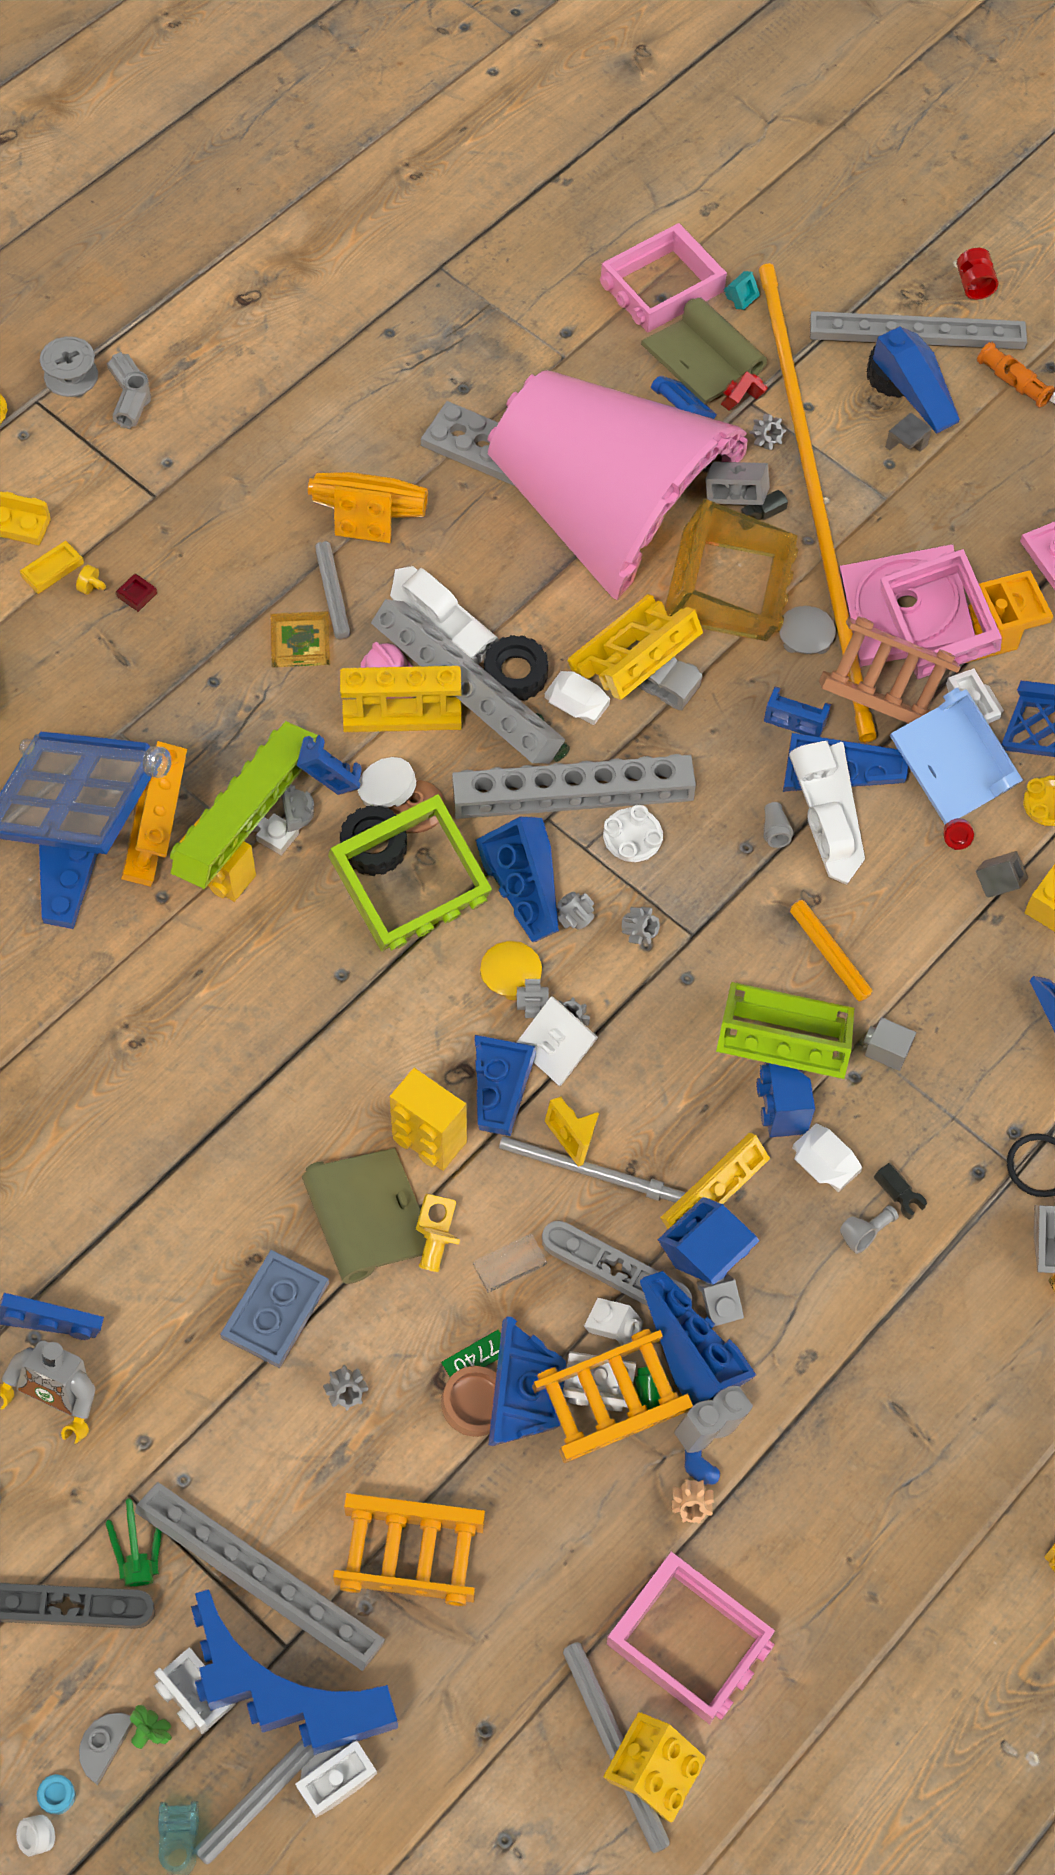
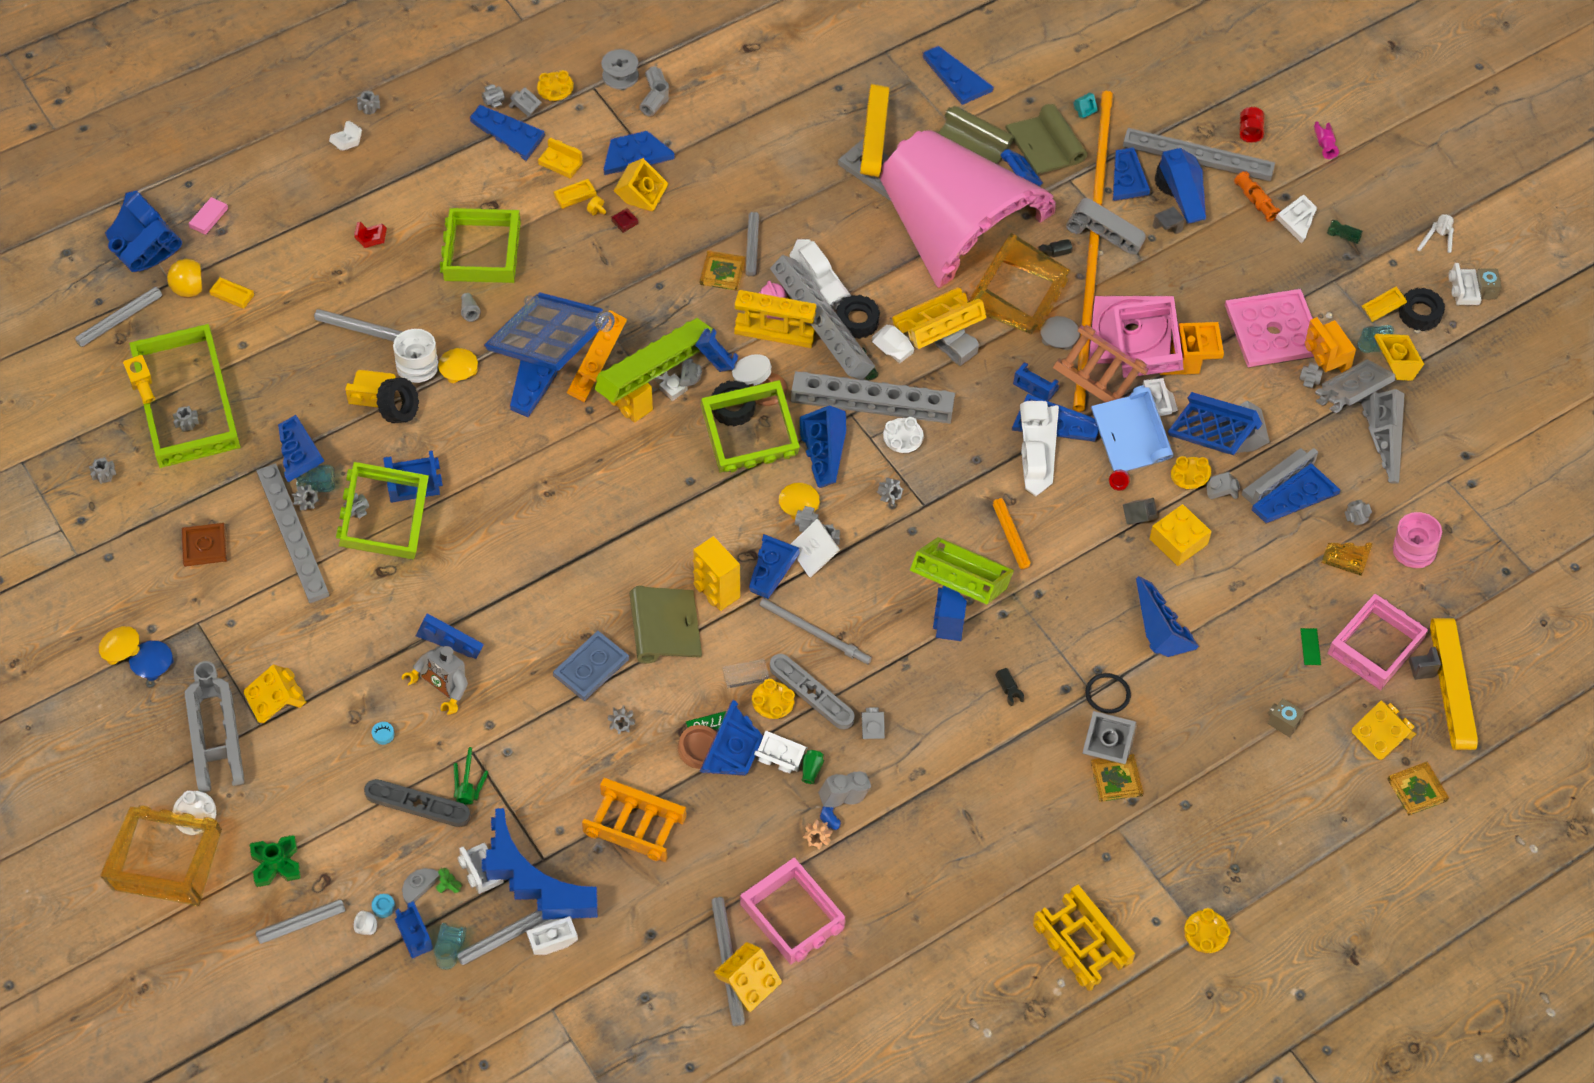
camera: 15 degrees right, 5 degrees down
(115, 1828) = (413, 931): none -> blue hinge
(124, 486) = (632, 148): none -> blue wing
(147, 535) = (641, 185): none -> yellow slope
(260, 1576) = (538, 814): light grey plate -> none
(367, 502) = (789, 192): light orange plate -> none
(435, 1232) = (703, 644): yellow bracket -> none
(462, 386) = (874, 130): none -> yellow beam
(552, 284) = (956, 76): none -> blue wing
(562, 1296) = (773, 699): none -> yellow dish
(571, 1132) = (808, 604): yellow slope -> none
(575, 910) = (850, 472): light grey gear -> none
(604, 362) = (975, 134): none -> olive door
(607, 1429) = (776, 779): light orange fence -> none
(613, 1321) = (801, 721): white bracket -> none
(688, 250) = (1027, 68): bright pink window -> none
(694, 1351) = (844, 743): blue wedge -> none
(707, 1241) = (873, 685): blue slope -> none
(723, 1178) = (889, 657): yellow plate -> none
(738, 483) = (1040, 228): light grey brick -> none
(745, 383) = (1068, 165): red bracket -> none
(775, 431) = (1071, 195): light grey gear -> none
(776, 826) = (999, 450): light grey cone -> none
(825, 458) = (1105, 224): none -> light grey beam
(826, 1157) = (968, 657): white slope -> none
(832, 380) = (1128, 176): none -> blue wing
(860, 1233) = (976, 706): light grey bar -> none
(889, 1043) = (1031, 597): light grey brick -> none

